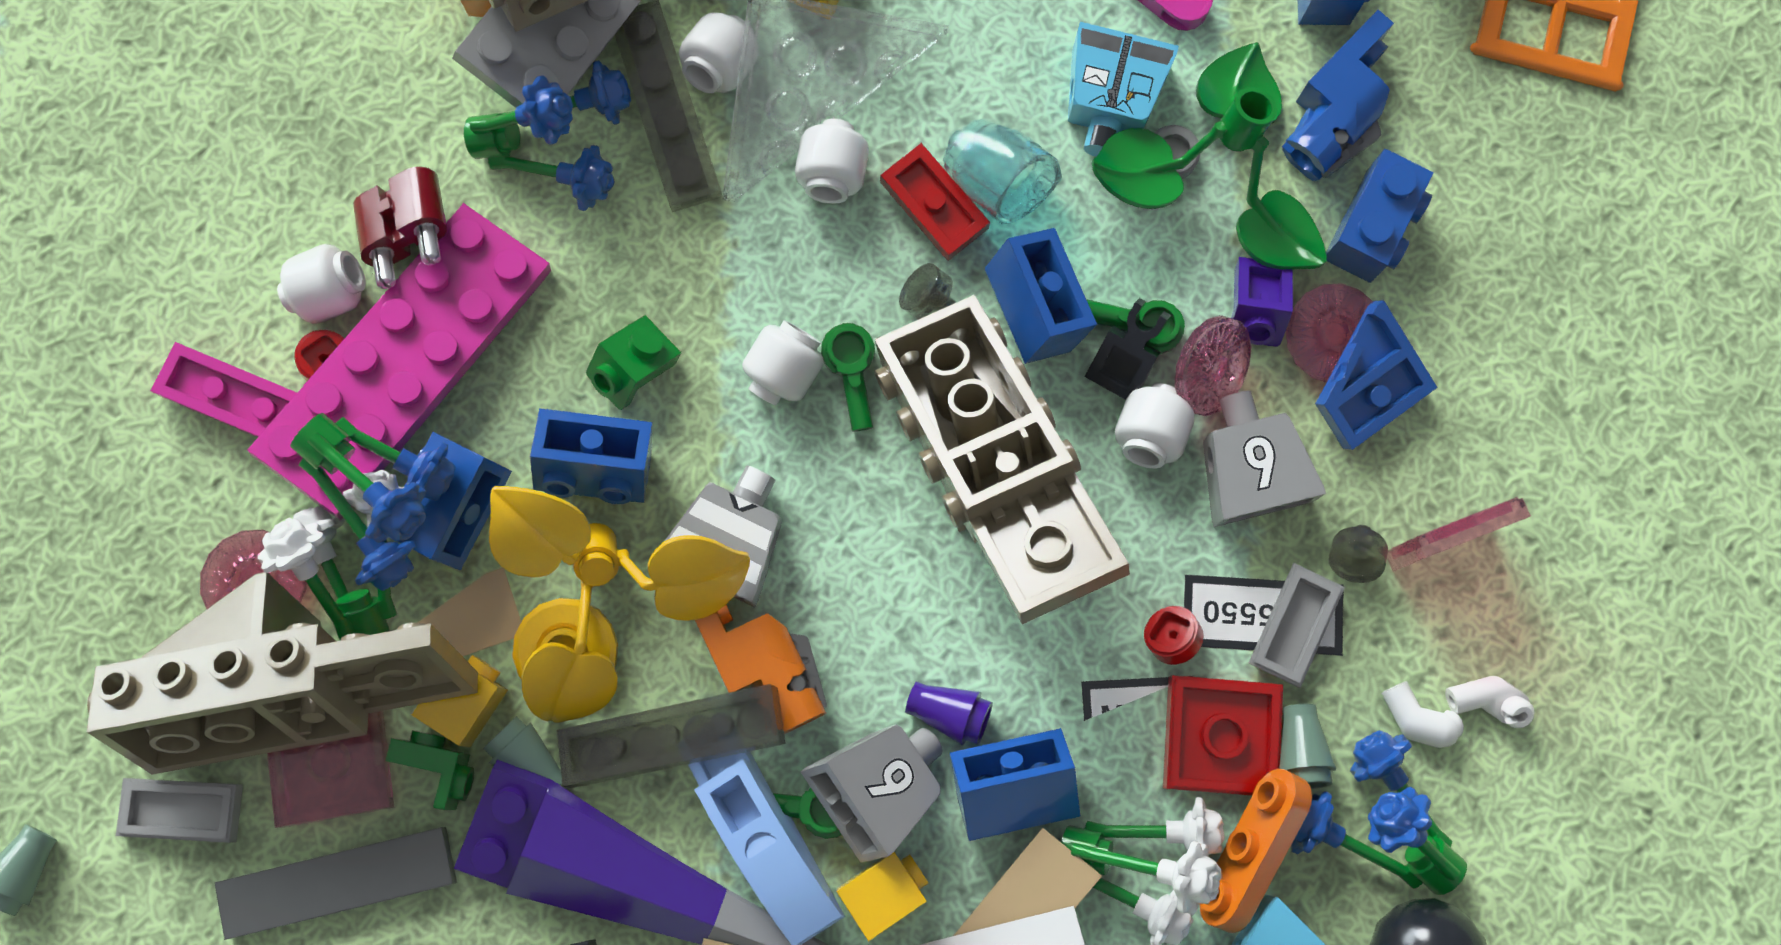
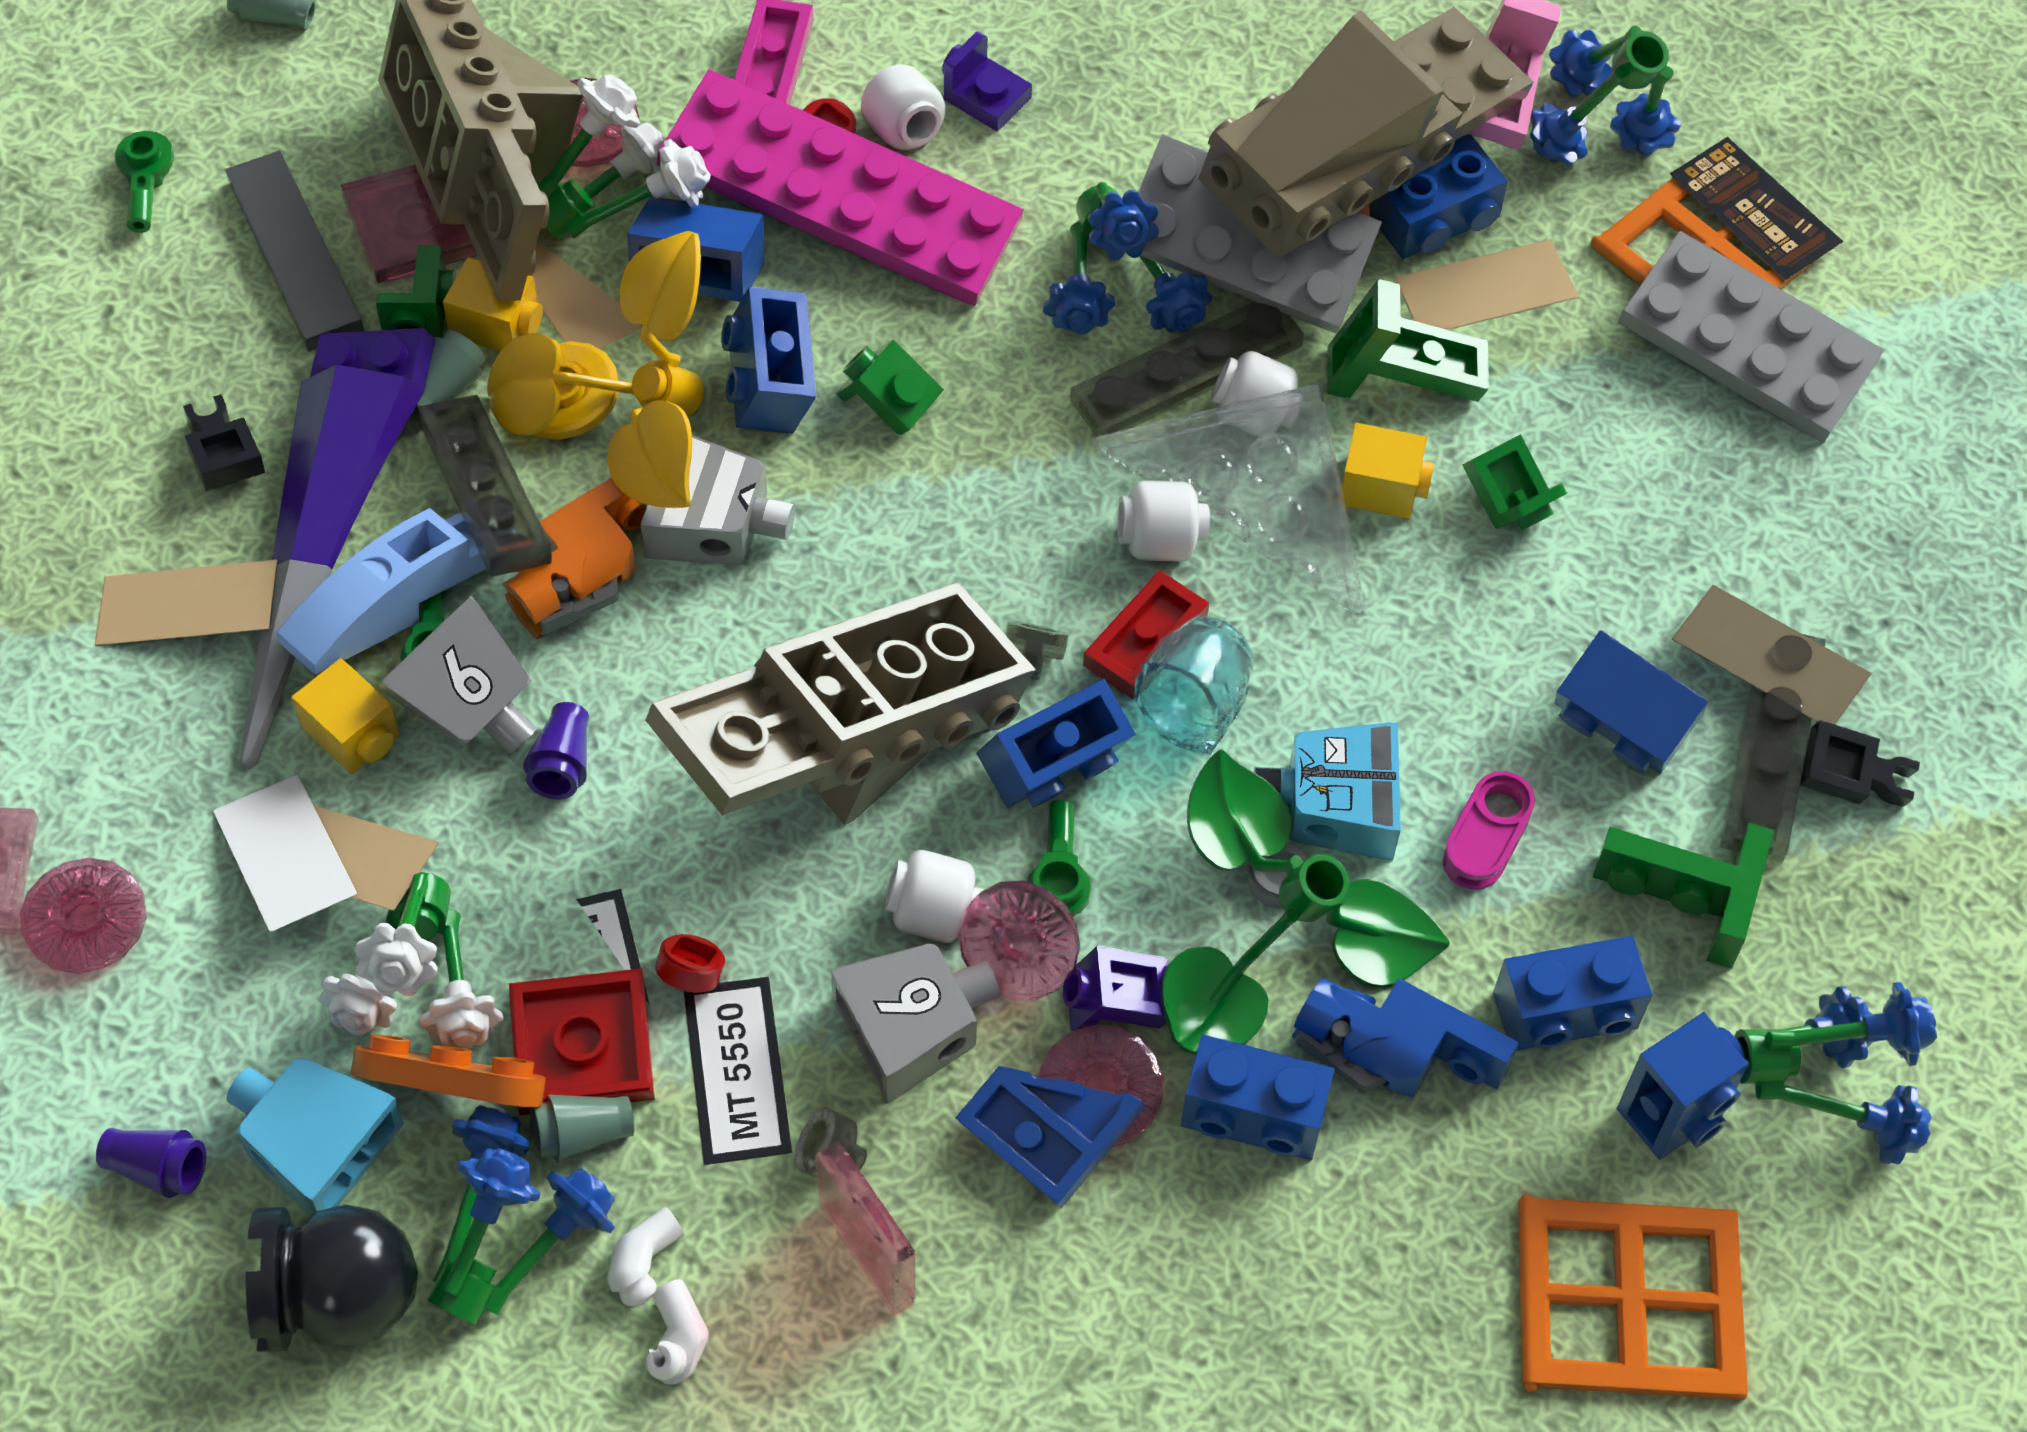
camera: 80 degrees right, 20 degrees down
(179, 810) = (347, 114): light grey tile -> none
(308, 207) = (982, 85): none -> dark purple bracket
(394, 512) = (652, 156): plant -> none
(397, 218) = (982, 153): dark red piece -> none
(782, 363) = (918, 518): white head -> none
(848, 353) = (941, 572): green plate -> none
(1015, 784) = (485, 815): blue brick -> none
(1125, 357) = (1012, 847): black plate -> none
(1296, 625) = (727, 1094): light grey tile -> none

